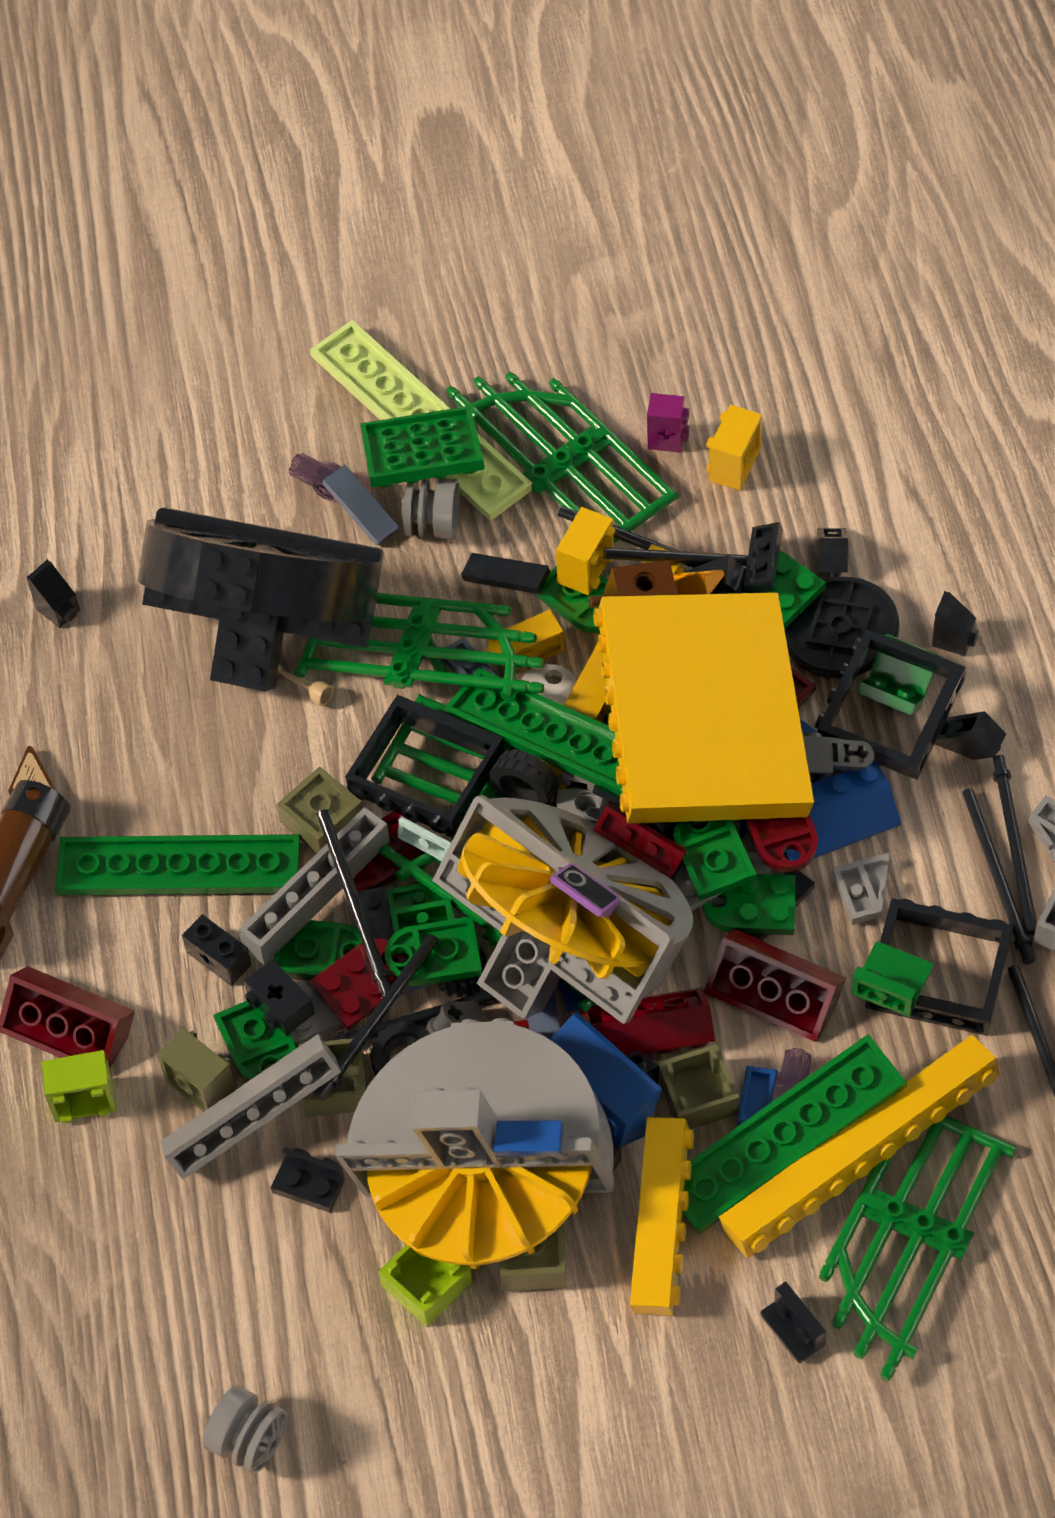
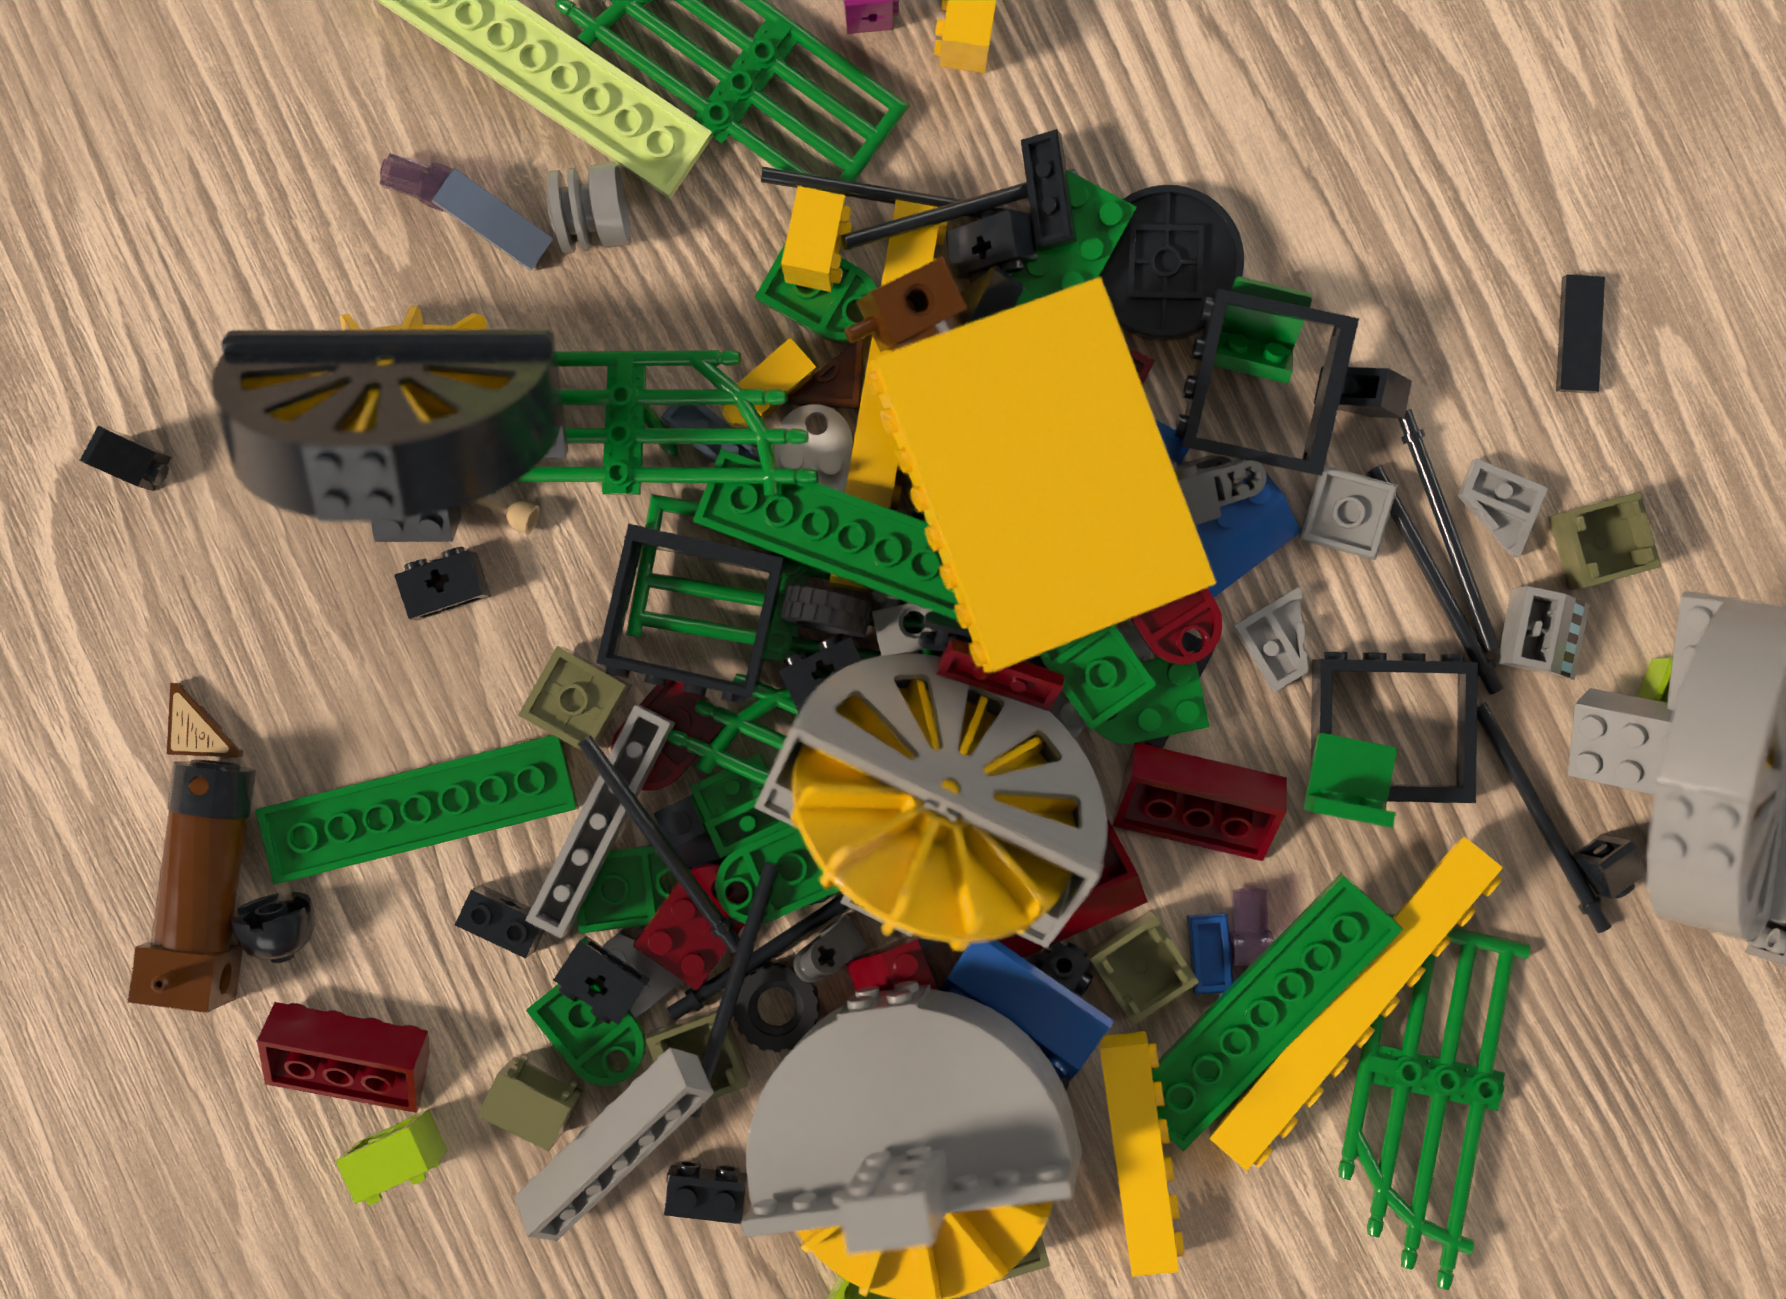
camera: 20 degrees left, 30 degrees up
(47, 915) = (274, 928): none -> black cylinder
(247, 722) = (465, 585): none -> black brick
(421, 447) = (550, 123): green plate -> none
(422, 838) = (726, 715): light aqua slope -> none
(505, 573) = (714, 282): black tile -> none
(528, 1138) = (989, 1197): blue tile -> none
(573, 655) = (837, 382): none -> reddish brown tile
(586, 890) = (975, 840): slope -> none
(697, 582) = (972, 257): light orange slope -> none
(794, 1324) = (1322, 1243): black bracket -> none
(832, 551) = (1130, 146): black slope -> none
(939, 813) = (1348, 512): none -> light grey plate
(954, 626) = (1314, 235): black slope -> none

